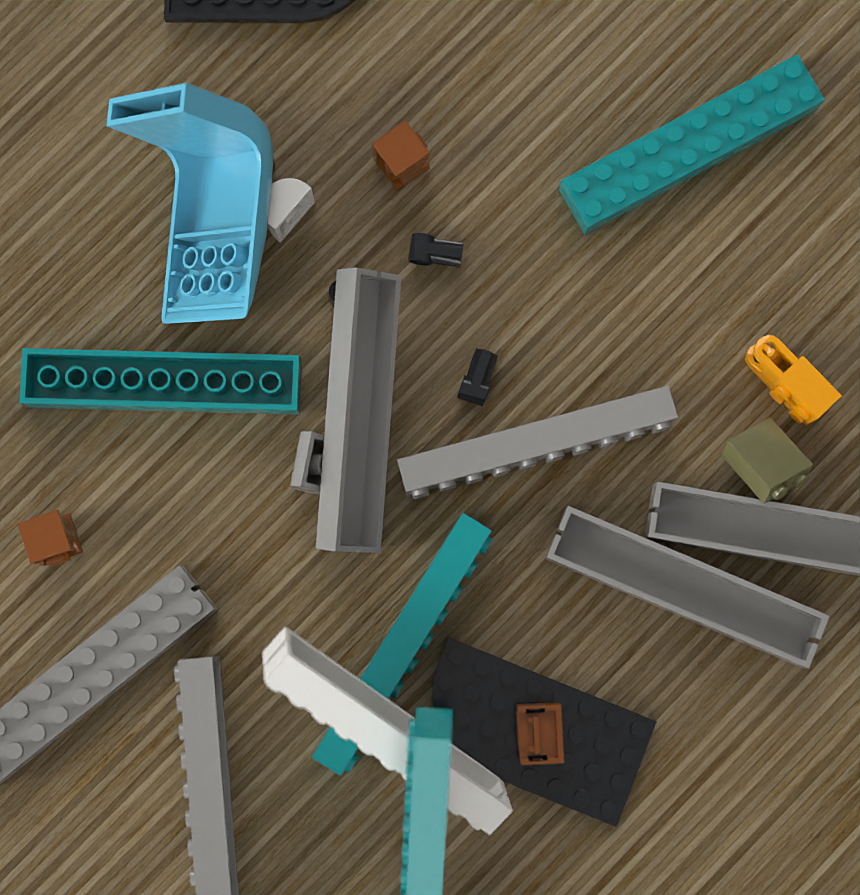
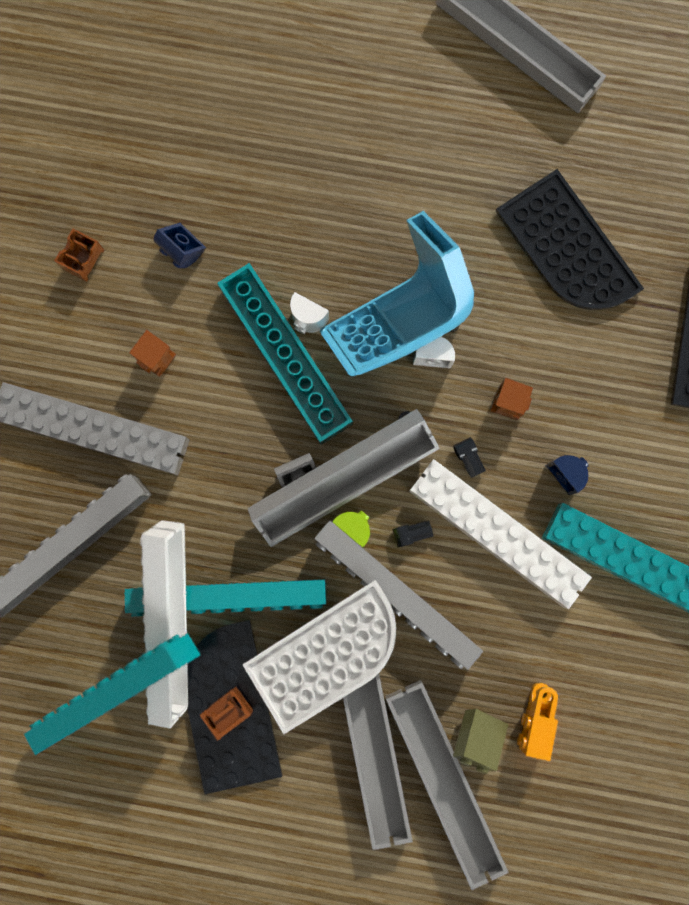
camera: 55 degrees right, 0 degrees up
(134, 322) = (307, 314): none -> white brick
(424, 435) = (355, 526): none -> lime brick
(532, 149) = (570, 473): none -> dark blue brick
(546, 278) = (500, 534): none -> white piece
(553, 573) = (325, 657): none -> white plate

